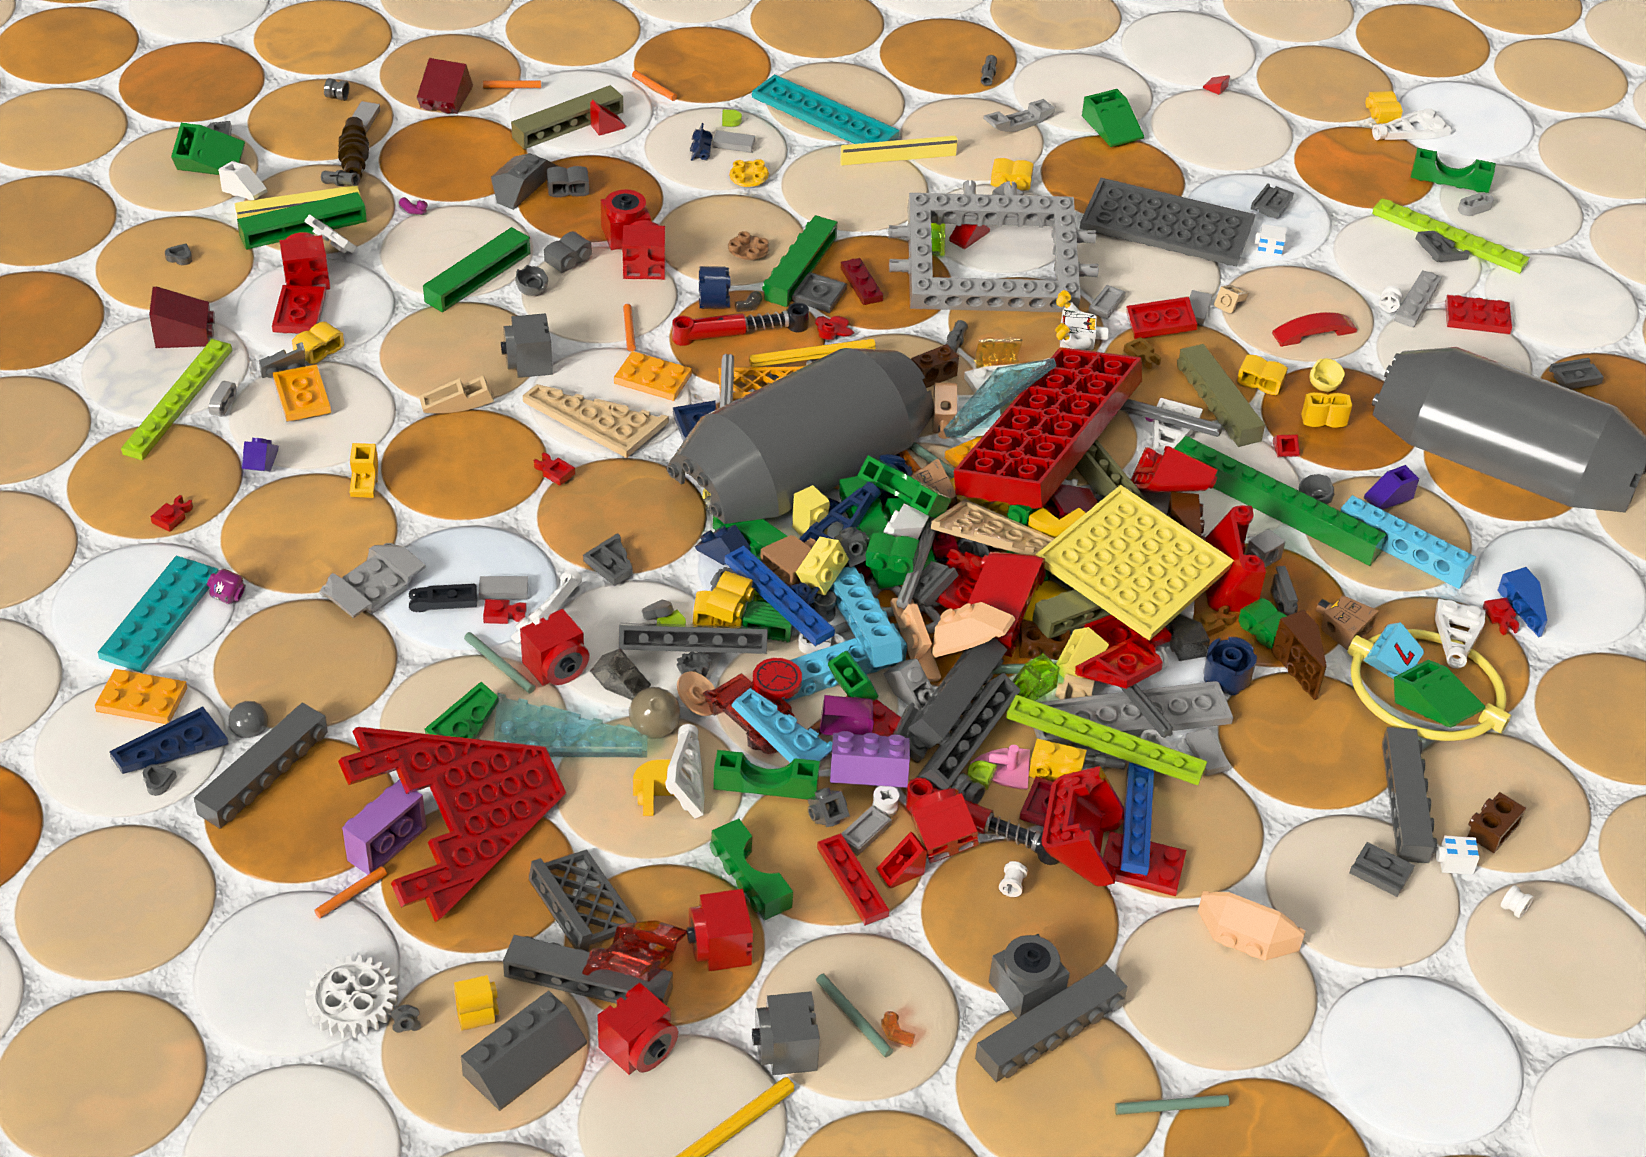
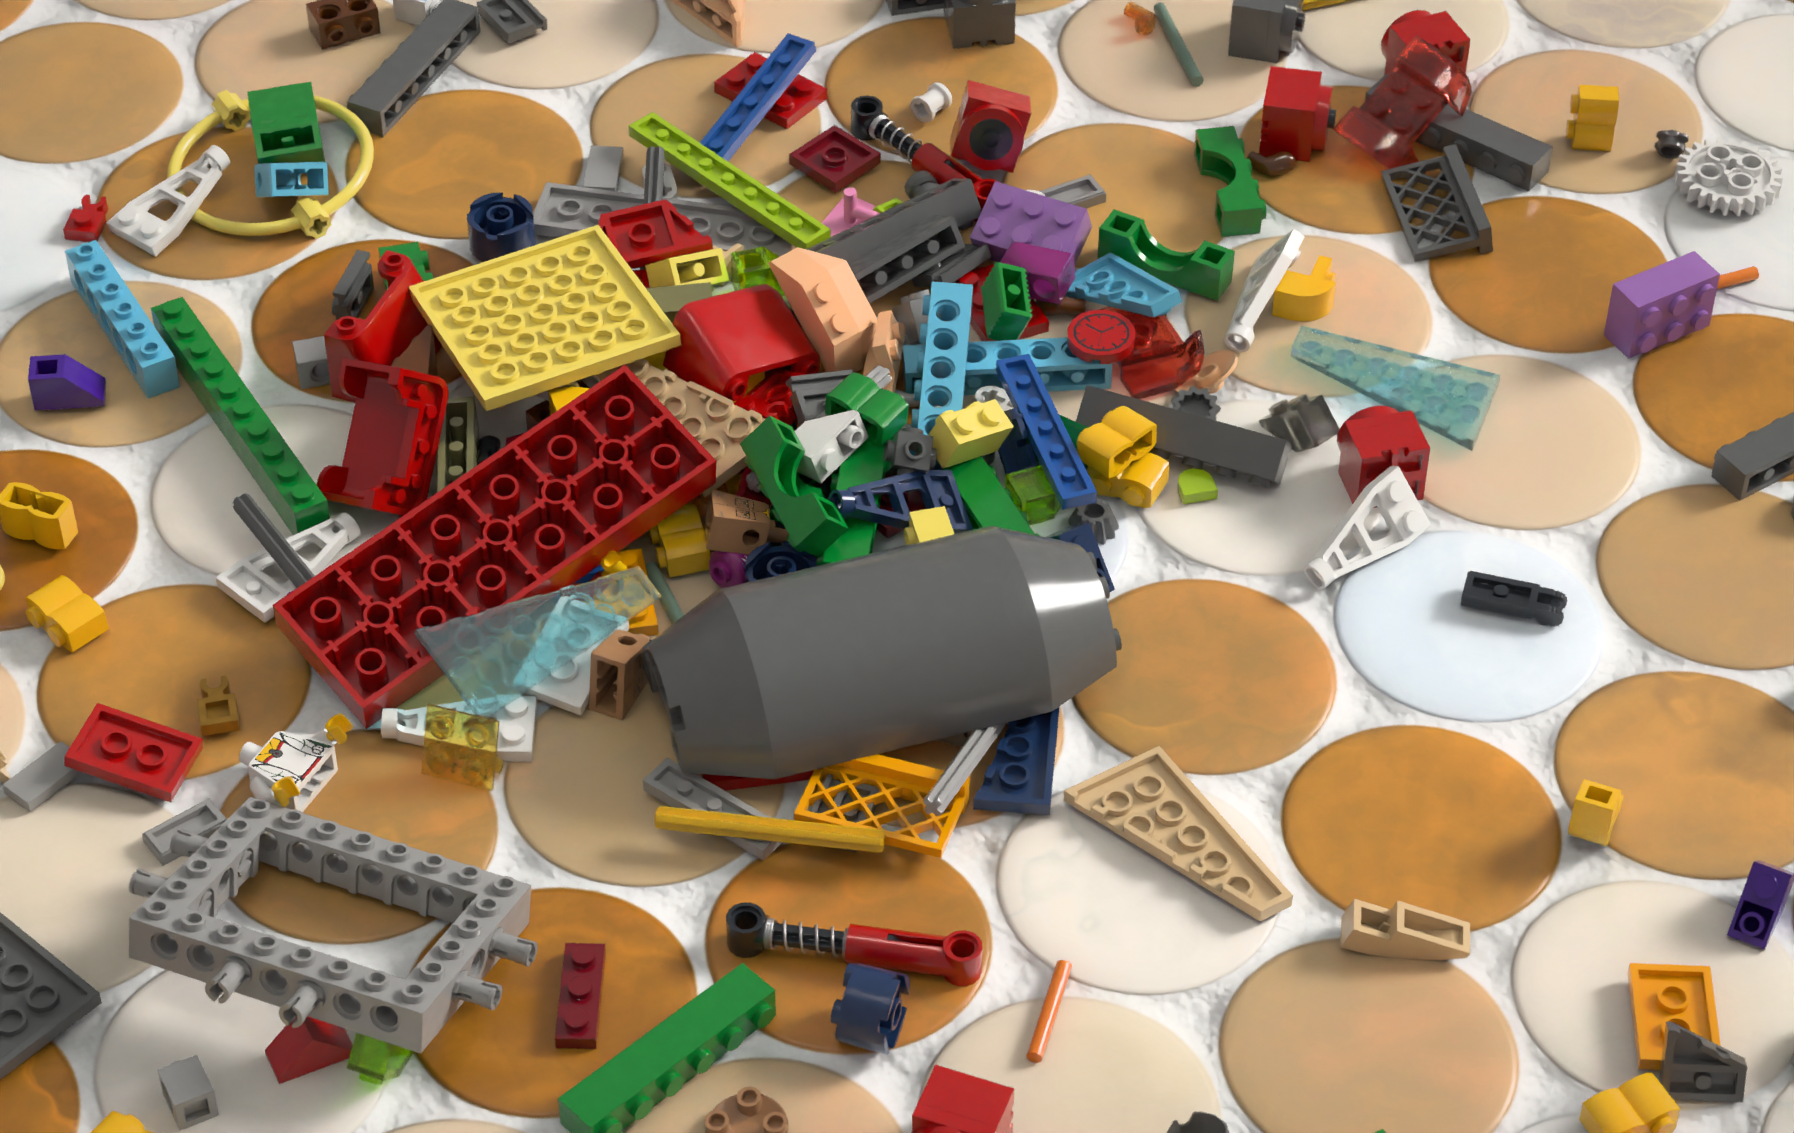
camera: 155 degrees left, 0 degrees up
(374, 581) = (1620, 642): light grey piece -> none
(467, 715) = (1530, 419): green wing -> none
(483, 790) = (1563, 288): red wing -> none
(499, 662) = (1461, 503): sand green bar -> none
(500, 611) = (1433, 566): red plate -> none
(503, 587) = (1420, 597): light grey tile -> none
(522, 1050) = (1546, 93): dark grey slope -> none
(528, 345) = (1255, 970): dark grey piece -> none
(556, 471) = (1282, 753): red plate -> none
(610, 560) = (1251, 589): dark grey wing -> none
(652, 375) = (1051, 897): light orange plate -> none
(654, 712) = (1276, 352): dark tan piece -> none
(658, 609) = (1210, 501): dark grey tile -> none
(751, 302) = (809, 995): clear smoke arm -> none
(786, 557) = (1004, 468): medium nougat torso -> none
(819, 292) = (663, 986): dark grey tile -> none
(827, 807) = (1108, 194): dark grey brick -> none
(831, 327) = (689, 909): red plate -> none
(853, 879) = (1114, 148): red plate -> none
(904, 862) = (1047, 145): red slope -> none
(937, 365) = (579, 763): reddish brown brick -> none
(956, 336) = (499, 823): dark grey pin -> none
(1055, 759) = (801, 185): yellow brick -> none
(1077, 815) = (851, 75): red windscreen -> none
(1221, 395) = (164, 599): olive brick -> none
(1286, 445) = (135, 509): red slope -> none
(1301, 651) = (399, 203): reddish brown slope -> none
(1318, 487) = (172, 411): dark grey hair -> none
(1346, 619) = (296, 250): medium nougat torso -> none
(1525, 597) = (38, 219): blue slope -> none

